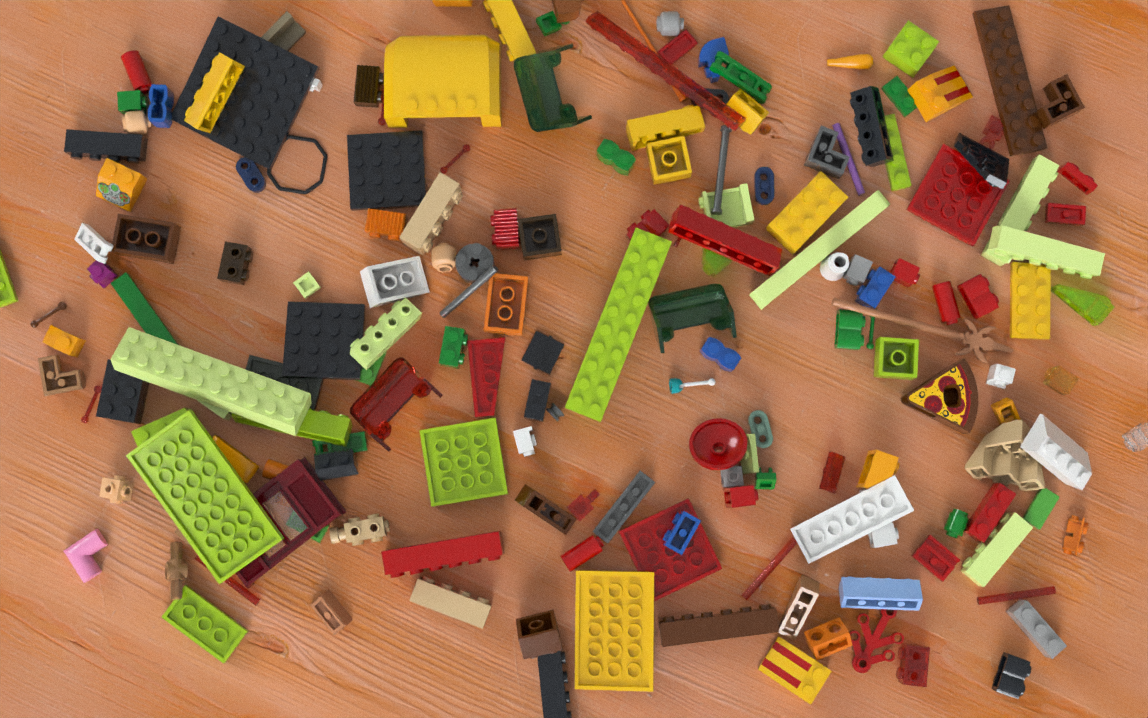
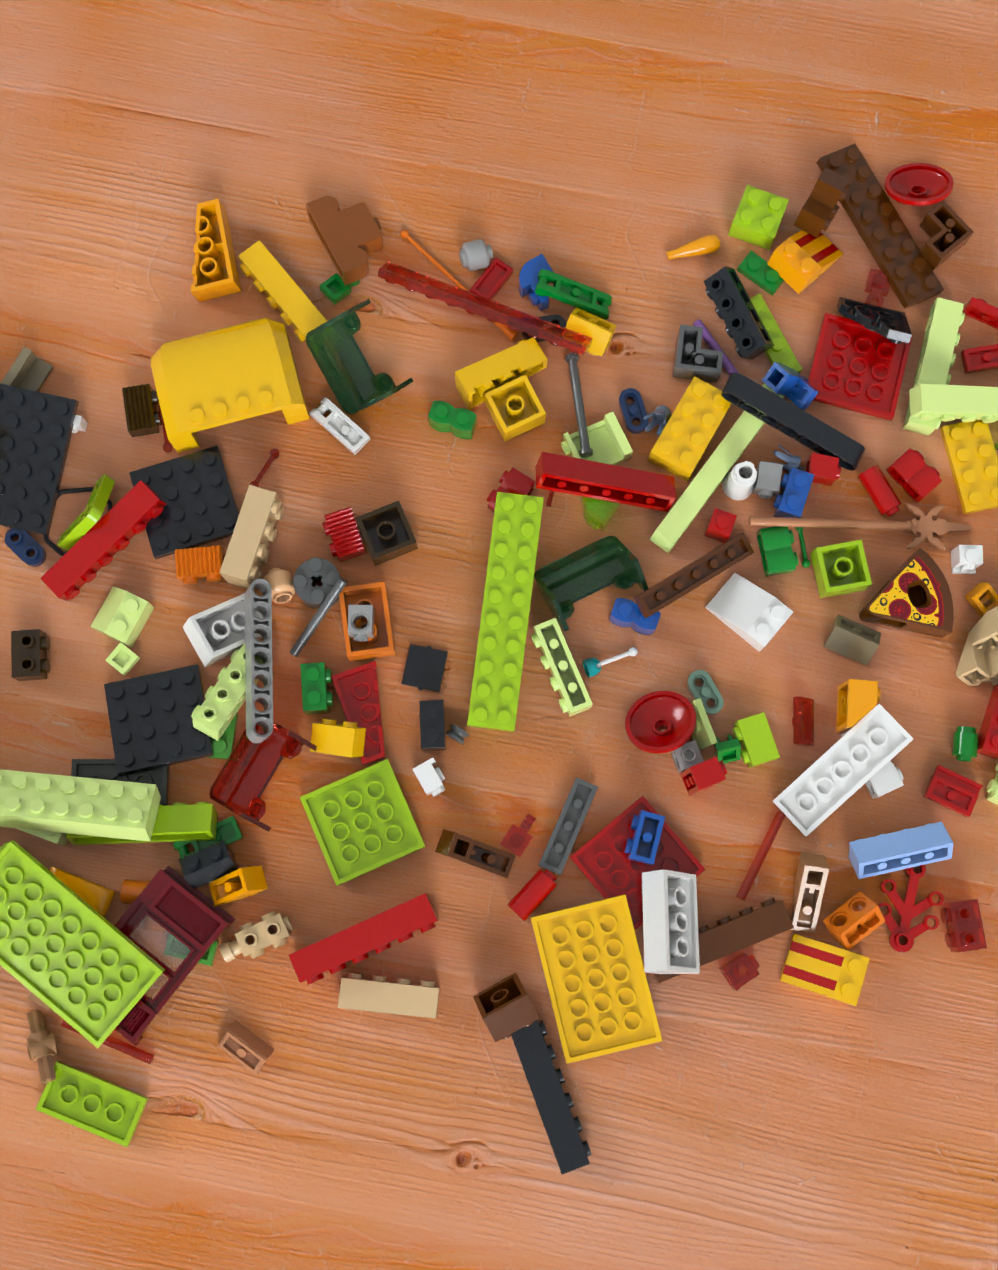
camera: 15 degrees left, 5 degrees down
(308, 164) = (91, 514): none -> lime beam
(313, 187) = (103, 541): none -> red brick
(314, 250) = (122, 616): none -> yellowish green slope
(355, 486) = (238, 885): none -> light orange slope
(407, 321) = (254, 670): none -> light grey beam
(460, 392) = (338, 739): none -> yellow brick
(500, 296) = (361, 612): none -> light grey brick
(524, 139) = (340, 426): none -> white plate
(652, 383) = (562, 667): none -> yellowish green brick
(683, 603) = (670, 922): none -> white slope
(721, 653) = (731, 970): none -> clear red brick
(776, 333) = (693, 575): none -> reddish brown plate
(784, 196) = (660, 416): none -> sand blue piece
(790, 477) = (755, 740): none -> lime brick
(808, 298) = (720, 525): none -> red brick
(813, 373) = (749, 611): none -> white slope
(881, 259) = (793, 461): none -> sand blue piece
(890, 228) = (792, 420): none -> black beam
(890, 417) = (853, 640): none -> dark tan panel
(898, 196) = (791, 384): none -> blue brick
(966, 51) = (822, 203): none -> reddish brown brick
(1051, 54) = (919, 184): none -> red dish

